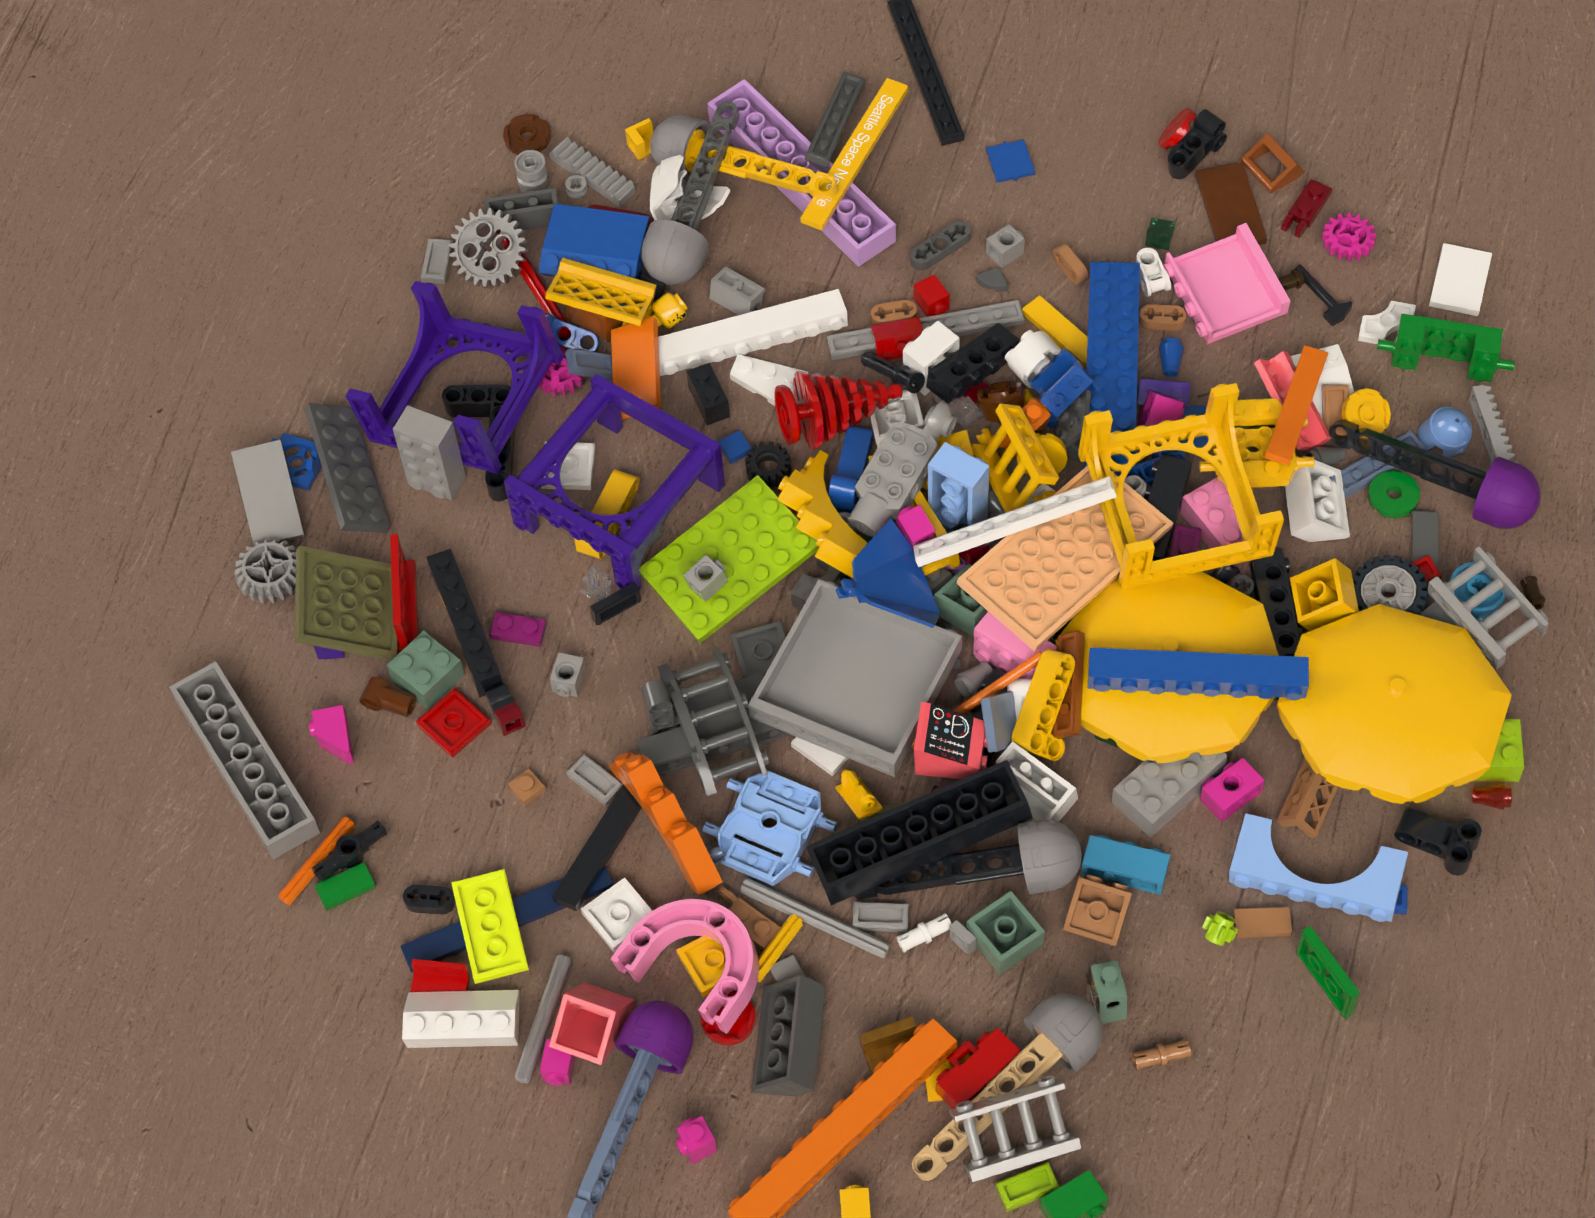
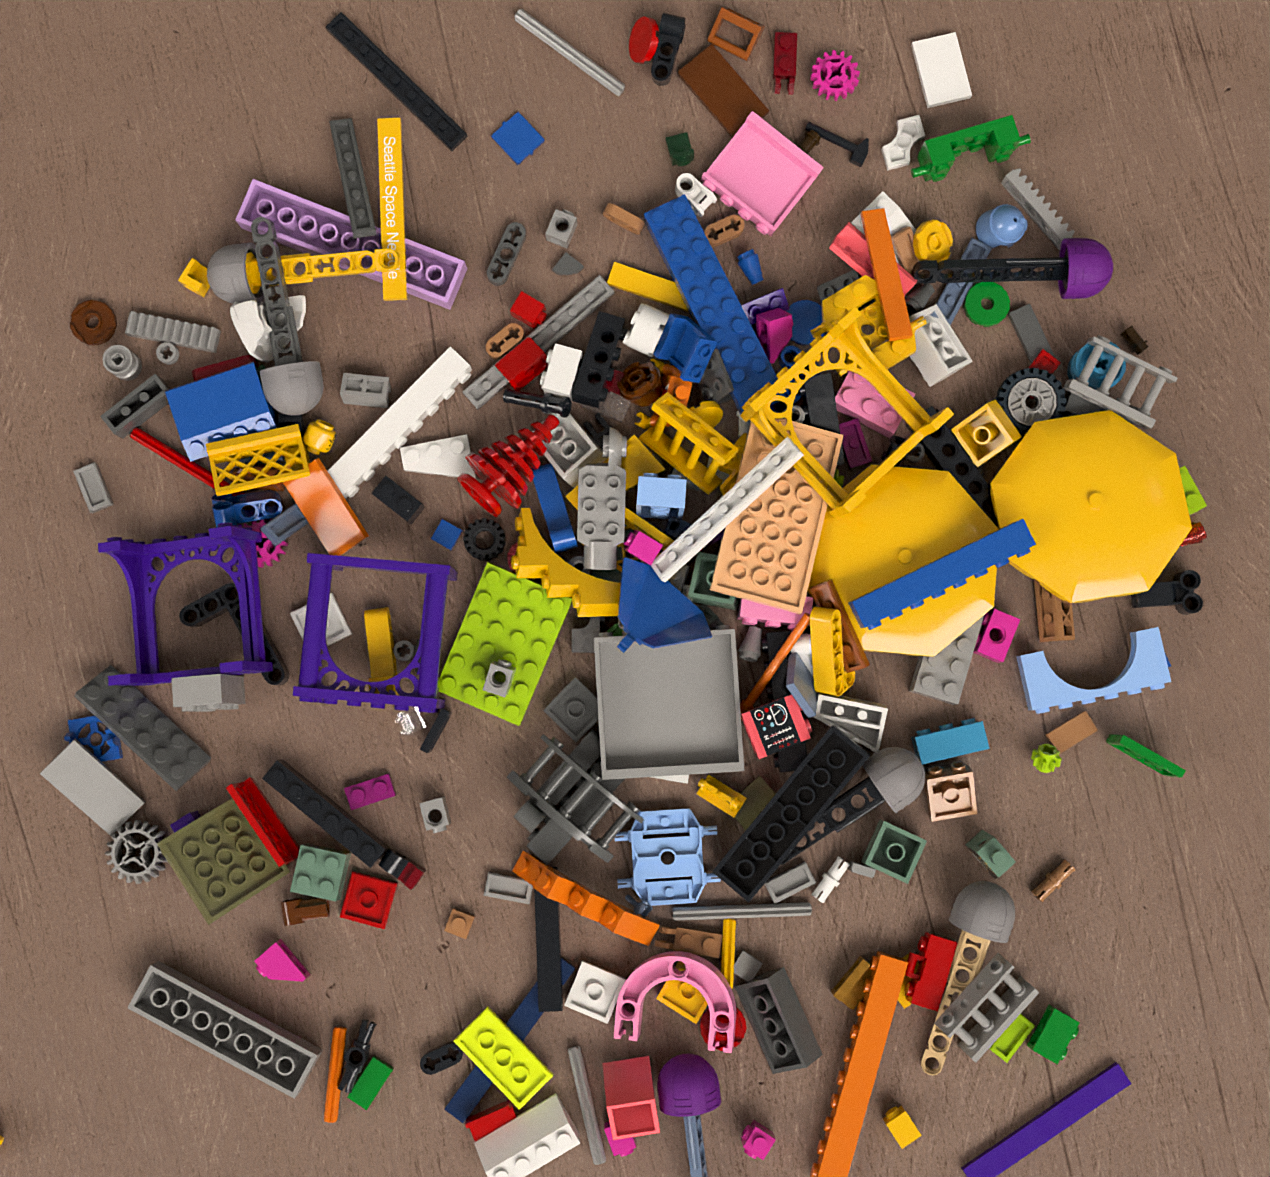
camera: 35 degrees left, 25 degrees up
(470, 235) = (109, 457): light grey gear -> none
(1102, 114) = (569, 52): none -> light grey axle

